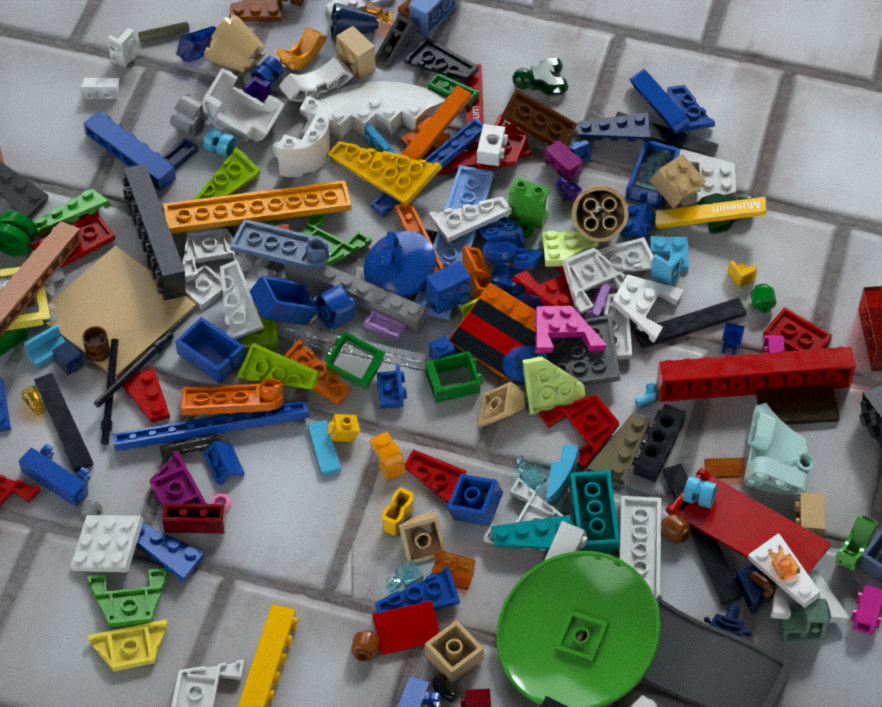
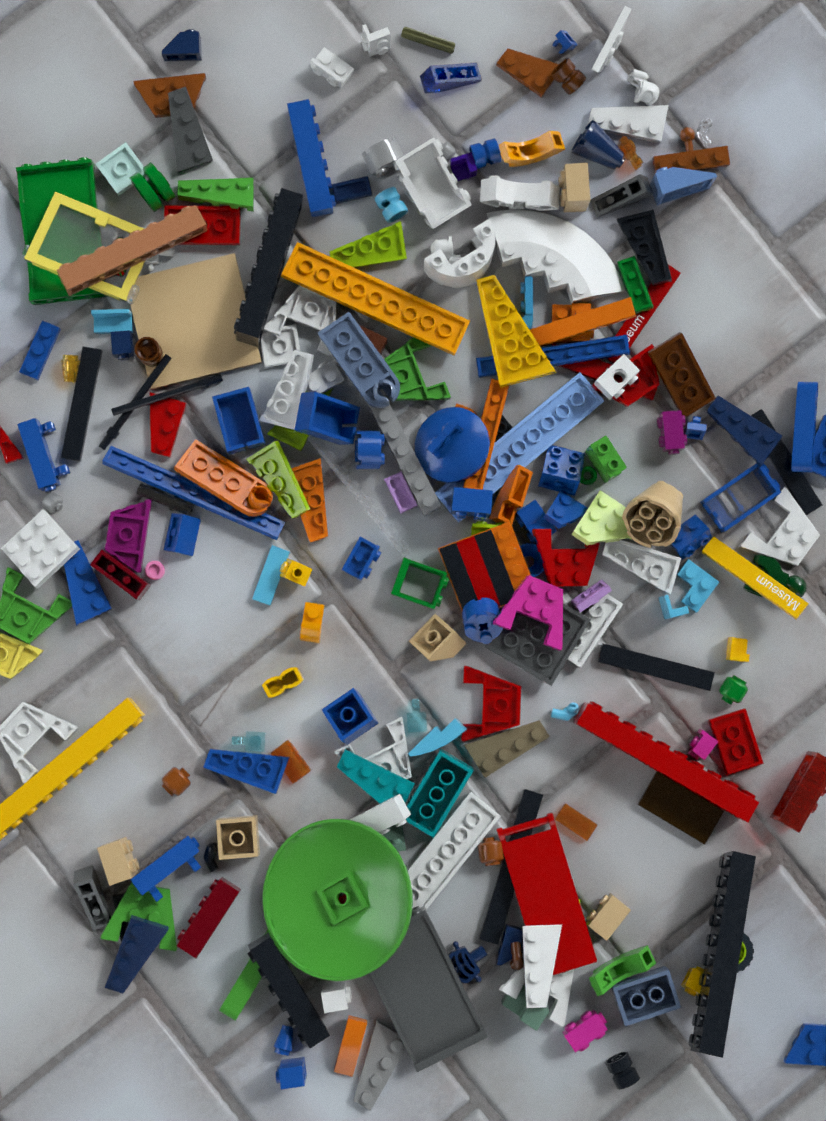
camera: 30 degrees right, 30 degrees up
(235, 46) = (472, 109): tan cone -> none
(372, 369) = (331, 526): green window -> none
(405, 627) = (218, 788): red tile -> none
(422, 537) = (287, 716): tan slope -> none
(434, 474) = (340, 665): red wing -> none
(440, 348) = (427, 553): blue brick -> none
(464, 220) = (542, 436): white wing -> none
(499, 252) = (547, 488): blue piece -> none
(542, 77) = (720, 325): dark green piece -> none
(549, 385) = (487, 656): yellowish green plate -> none
(567, 190) = (655, 463): dark purple hair -> none
(587, 272) = (602, 564): white wing -> none
(638, 296) = (625, 617): white wing -> none
(651, 467) = (568, 754): black brick -> none
(657, 159) = (752, 487): clear light blue plate -> none
(678, 181) = (750, 528): tan brick -> none
(699, 492) = (529, 841): medium azure wheel -> none
(732, 336) = (679, 705): clear blue plate -> none
(776, 455) = (624, 843): light aqua panel -> none
(783, 564) = (537, 963): clear orange plate -> none

